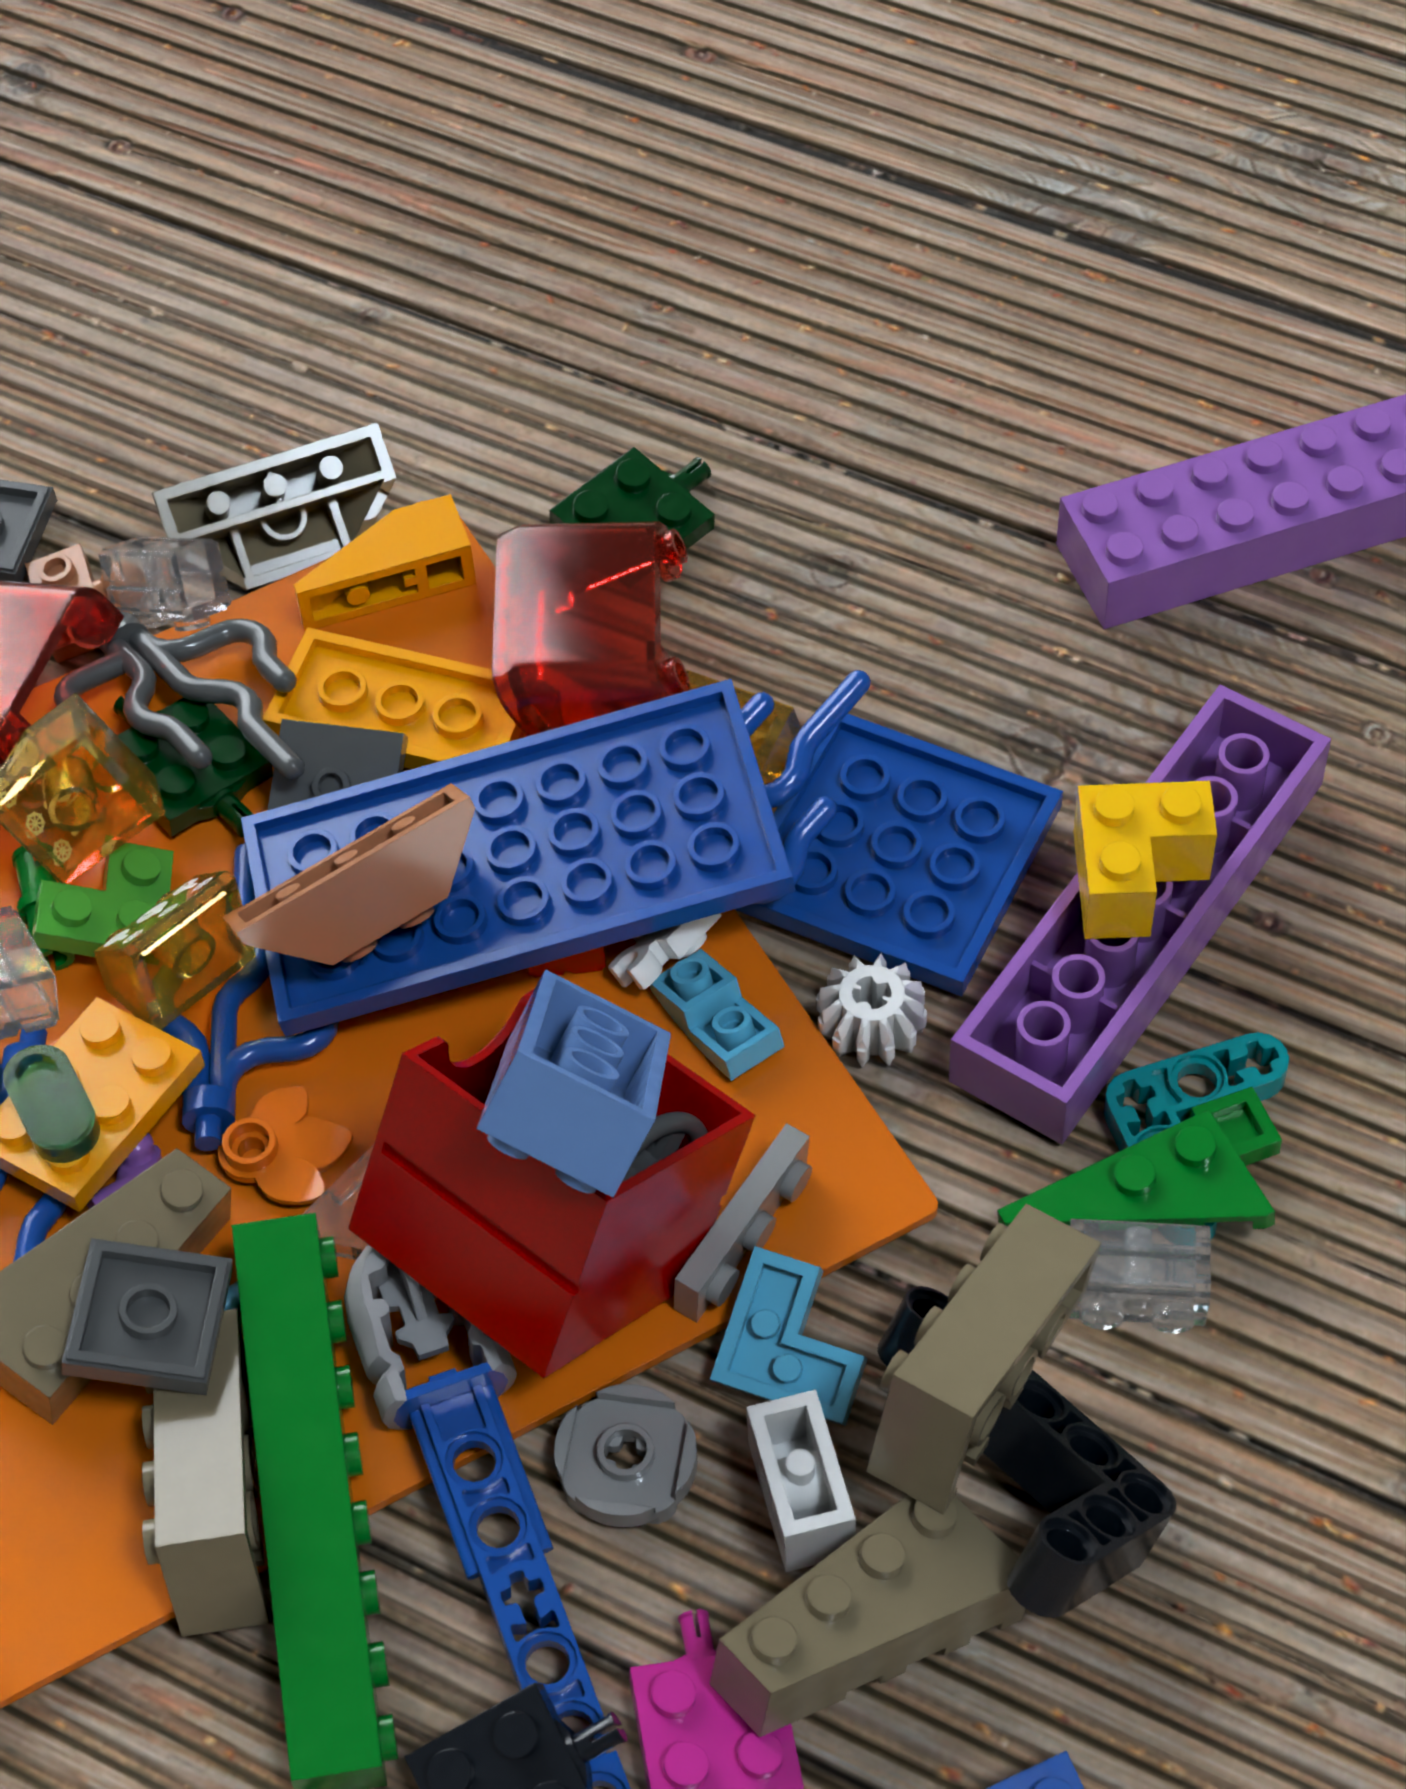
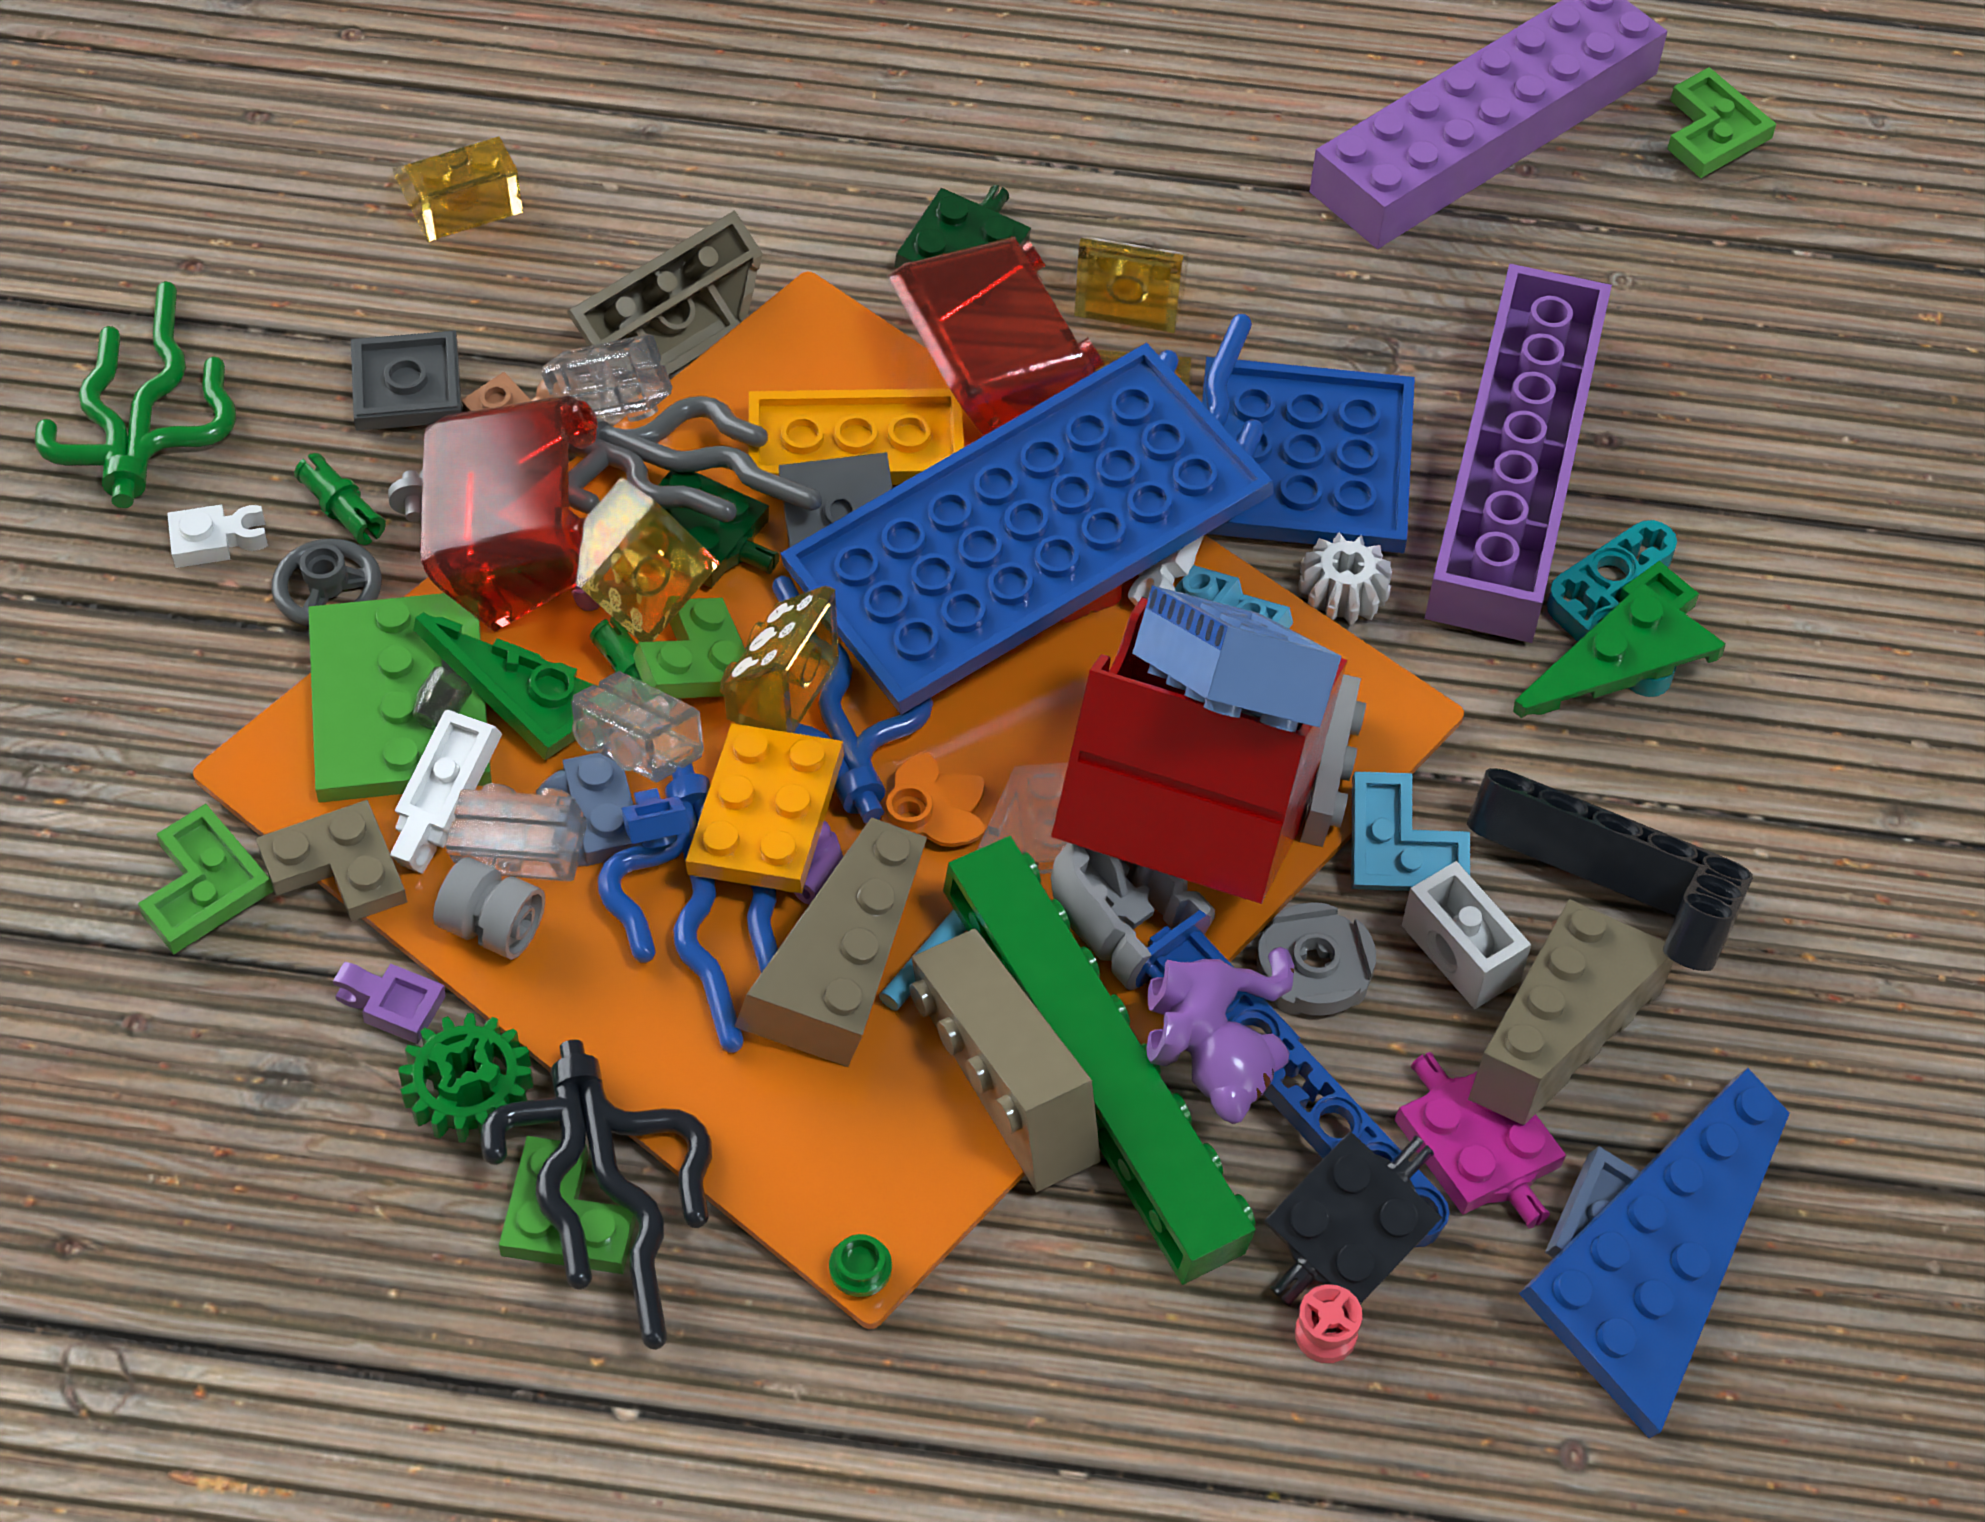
camera: 25 degrees left, 0 degrees up
(51, 1103) = (749, 810): clear green tile -> none
(135, 335) = (461, 188): none -> clear yellow slope
(147, 1316) = (921, 947): dark grey plate -> none
(364, 888) = (936, 567): nougat wedge -> none
(392, 563) = (799, 318): light orange slope -> none
(438, 1549) = (1228, 1058): none -> medium lavender animal
(788, 601) = (1130, 284): none -> clear yellow slope
(978, 1353) = (1578, 798): dark tan wedge -> none
(1133, 839) = (1512, 400): yellow brick -> none
(1147, 1275) = (1637, 719): clear brick -> none

